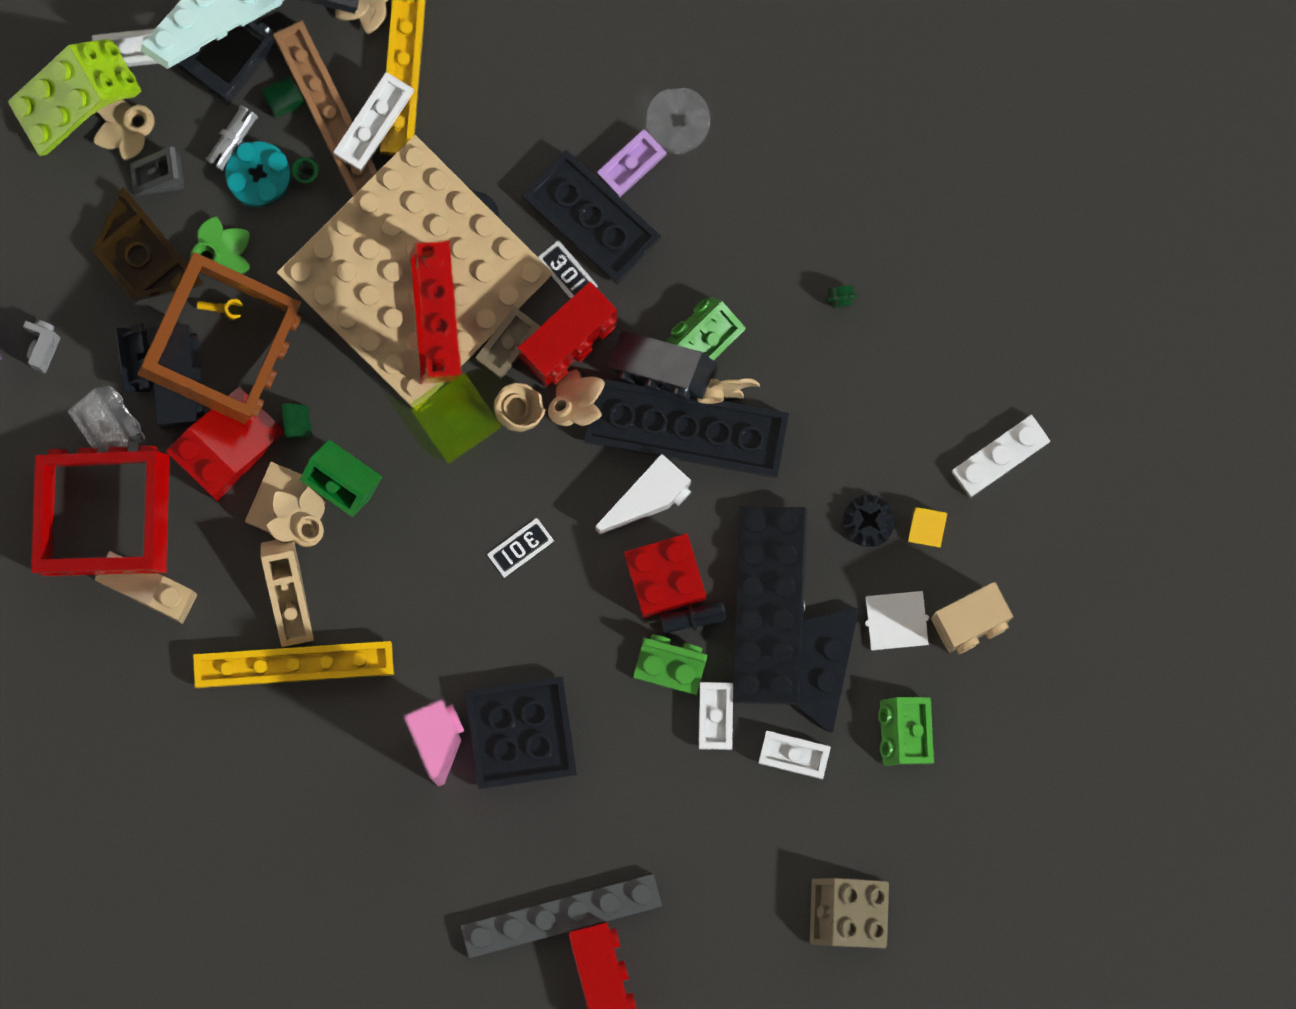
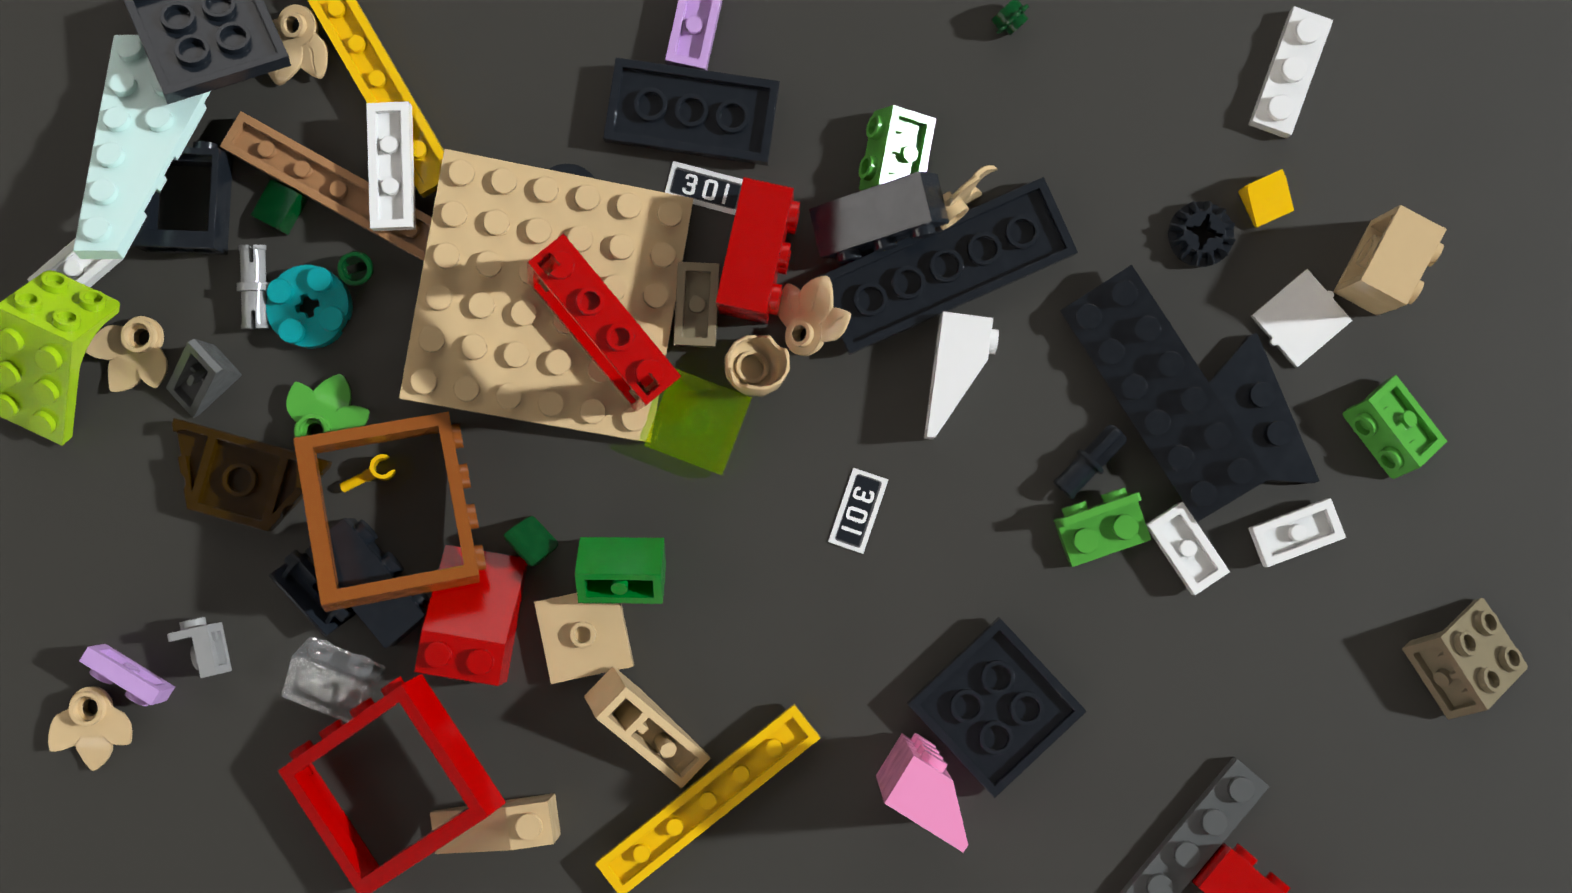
camera: 25 degrees left, 5 degrees up
(293, 514) = (597, 644): tan plate -> none
(665, 576) = (1034, 438): red brick -> none

